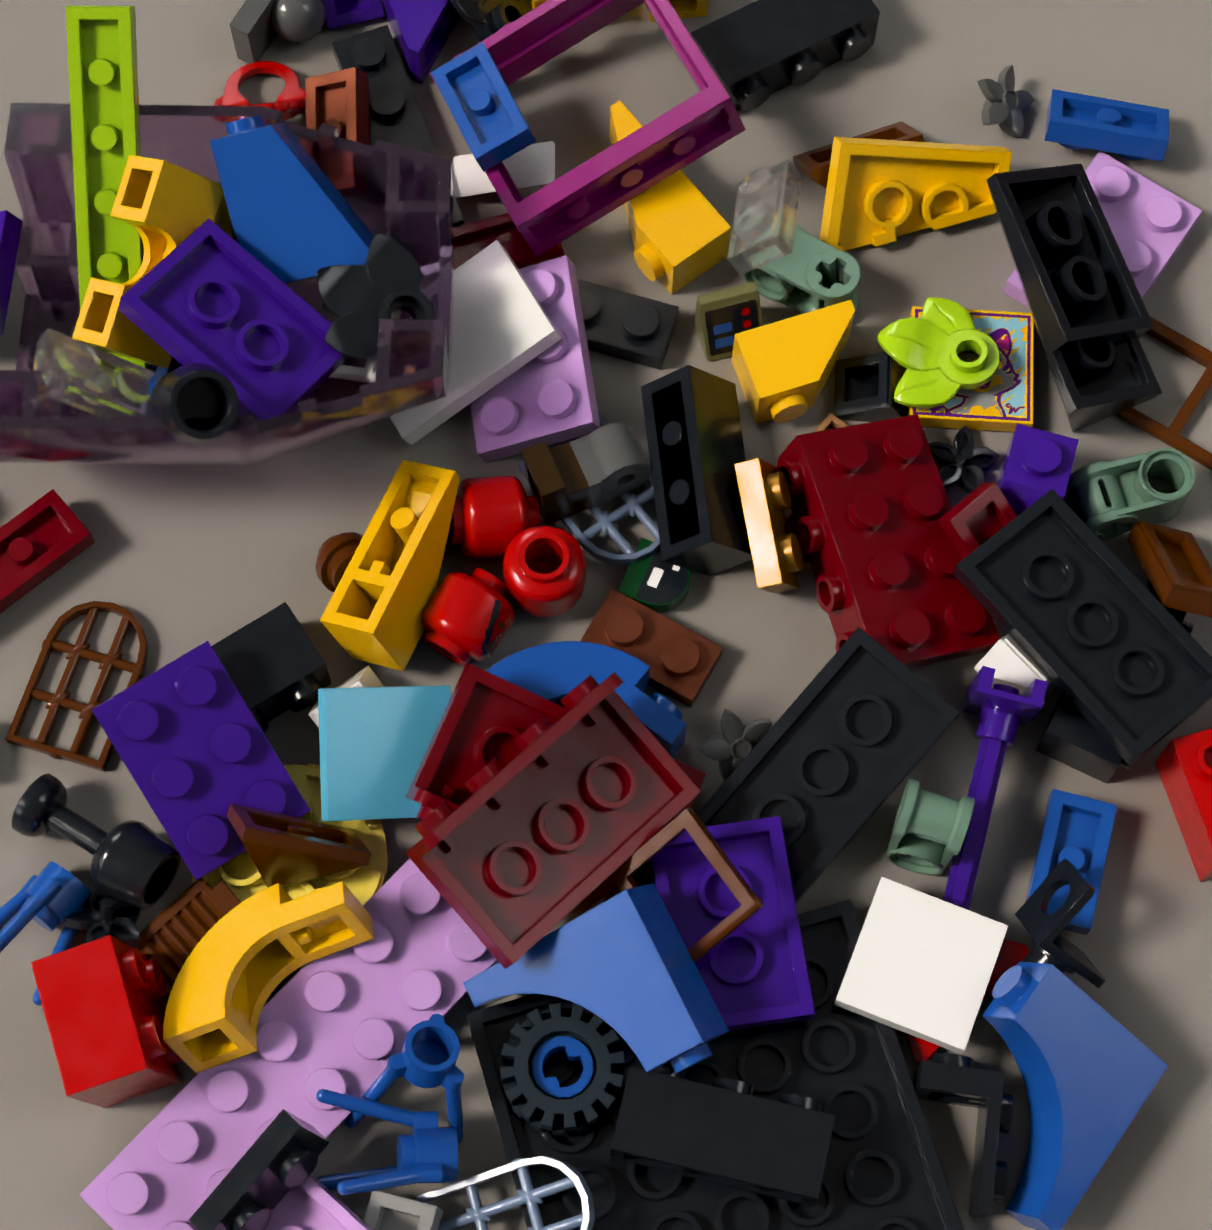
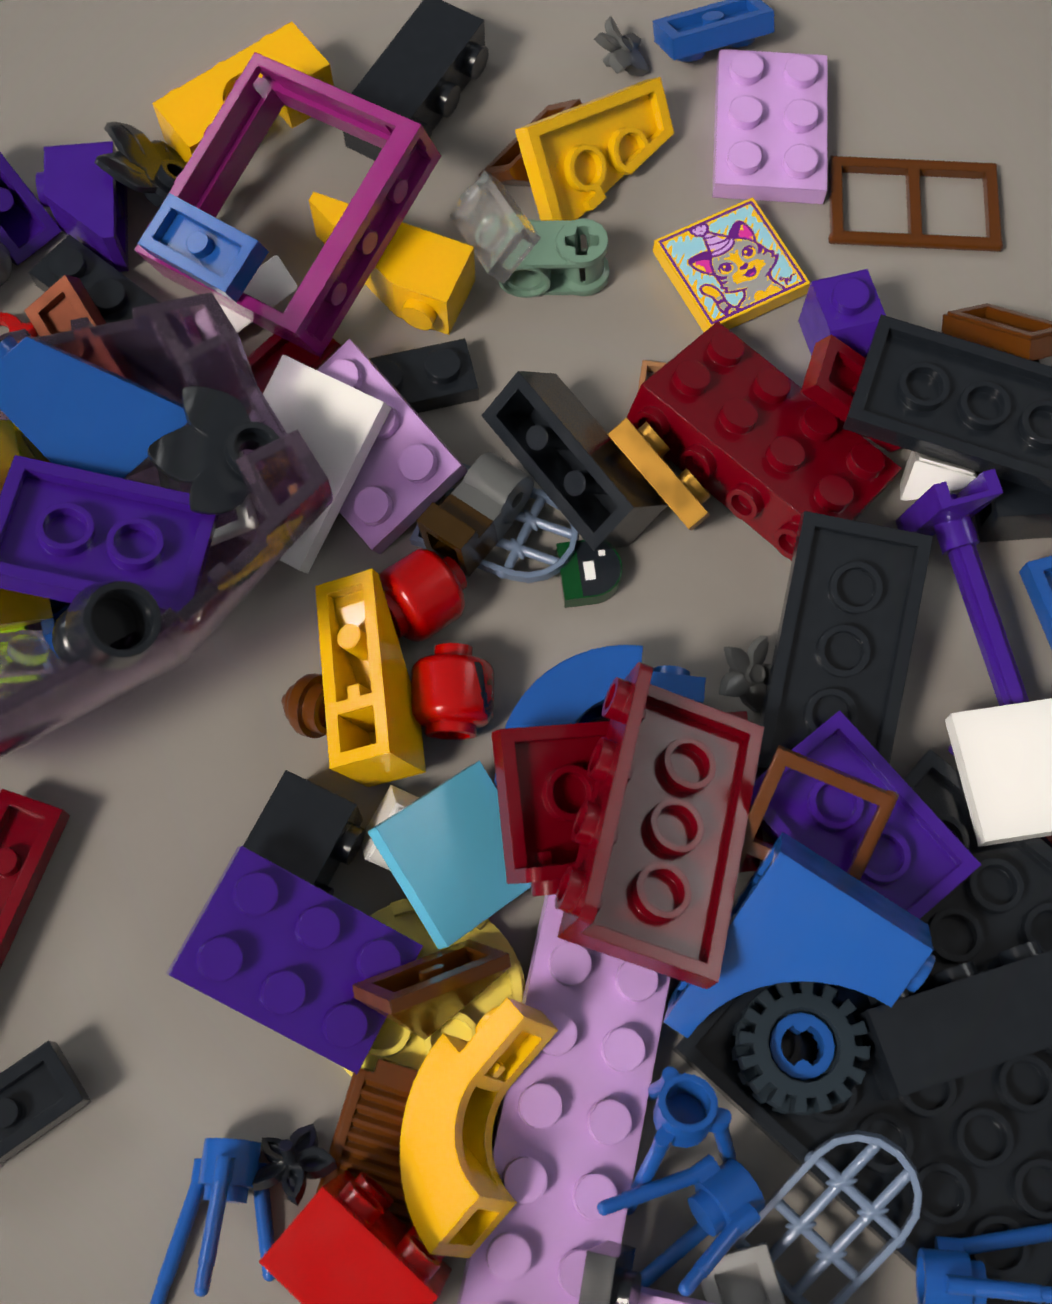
camera: 30 degrees left, 0 degrees up
(61, 697) = (122, 975): reddish brown window -> none
(127, 861) = (282, 1095): black piece -> none
(544, 571) = (496, 614): red head -> none
(676, 656) = (648, 622): copper plate -> none
(723, 315) = (515, 328): slope -> none
(790, 361) = (586, 334): yellow slope -> none
(867, 388) = (661, 323): black slope -> none
(928, 829) = (962, 649): sand green piece -> none
(930, 354) = (698, 263): lime plate -> none
(962, 461) = (775, 342): black plant -> none
(1076, 290) = (779, 159): black slope -> none
(1119, 492) = (922, 296): sand green piece -> none

